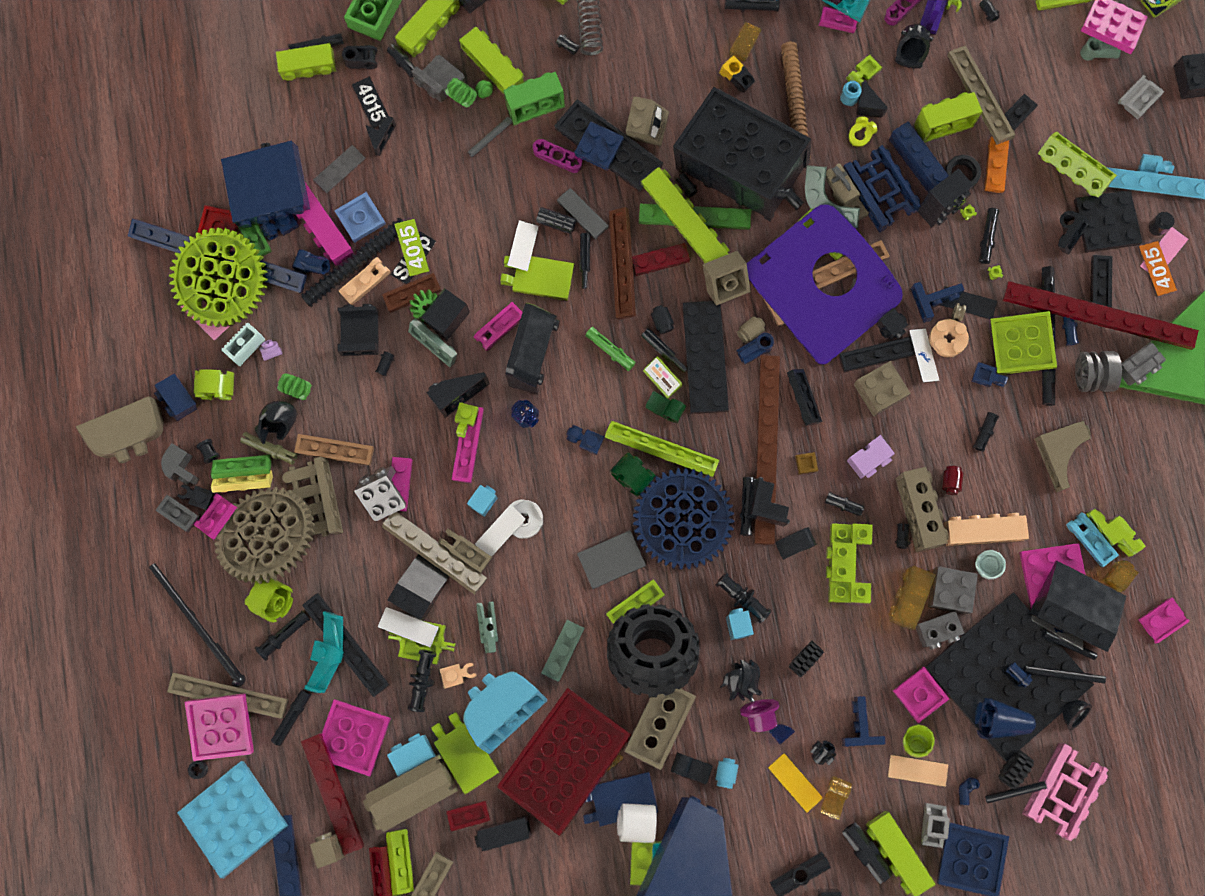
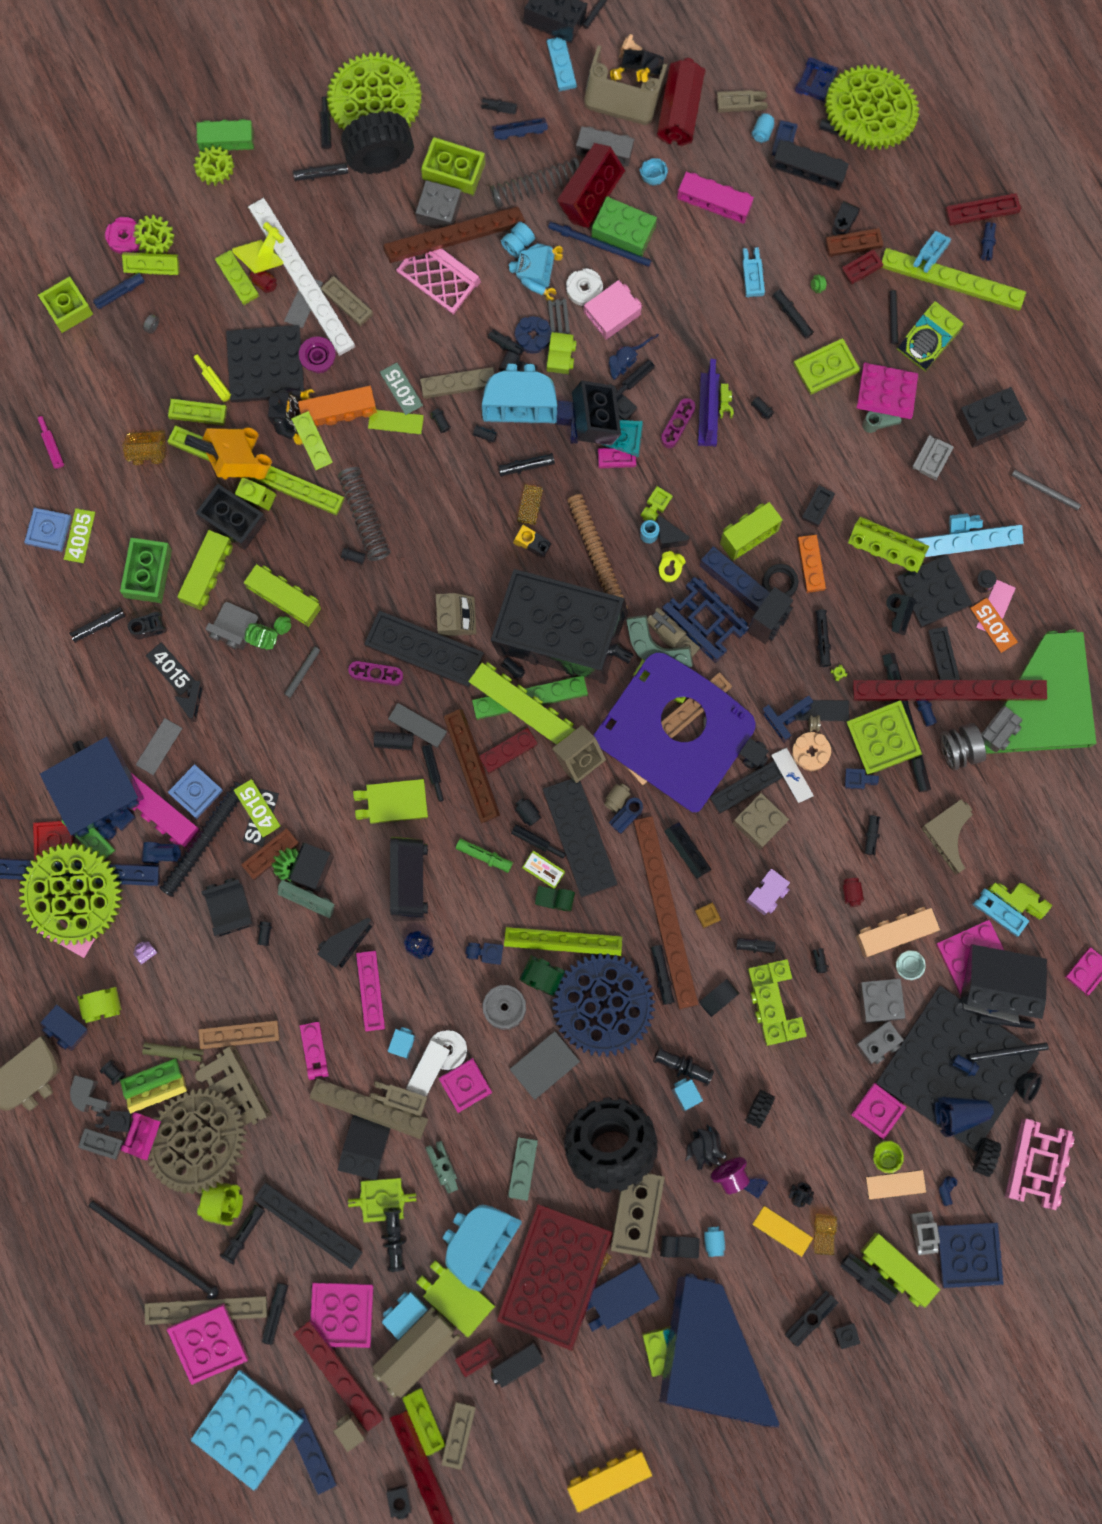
camera: 20 degrees left, 0 degrees up
(202, 765) = (202, 1386): black bush -> none
(243, 344) = (117, 955): light aqua brick -> none
(277, 418) = (173, 1019): black helmet -> none
(294, 386) = (181, 983): bright green gear -> none
(306, 62) = (93, 646): lime brick -> none
(327, 653) = (292, 1239): teal plate -> none
(364, 281) = (218, 856): light nougat plate -> none
(380, 494) = (298, 1066): bracket -> none
(401, 59) = (190, 617): black pin -> none
(408, 627) = (365, 1190): white sticker -> none
(454, 675) = (423, 1224): light nougat plate -> none
(465, 417) = (361, 964): lime plate -> none
(499, 326) = (368, 863): dark pink plate -> none
(523, 245) = (368, 775): white sticker -> none
(531, 556) = (465, 1085): none -> dark pink plate
(534, 98) = (336, 622): bright green brick -> none
(588, 505) = (516, 1007): none -> flat silver wheel
(599, 146) = (415, 653): dark blue plate -> none
(636, 823) = (642, 1316): white piece -> none
(646, 595) = (588, 1092): lime plate -> none
(762, 508) = (676, 972): black panel -> none
(861, 726) = (830, 1159): dark blue bracket -> none
(911, 597) = (844, 1019): clear yellow brick -> none
(913, 46) = (698, 466): black helmet -> none
(916, 517) = (820, 927): dark tan brick -> none
(968, 212) = (796, 619): lime piece -> none
(974, 82) = (780, 500): dark tan plate -> none
(1016, 792) = (993, 1178): black bar -> none
(1120, 575) = (1036, 940): clear yellow brick -> none

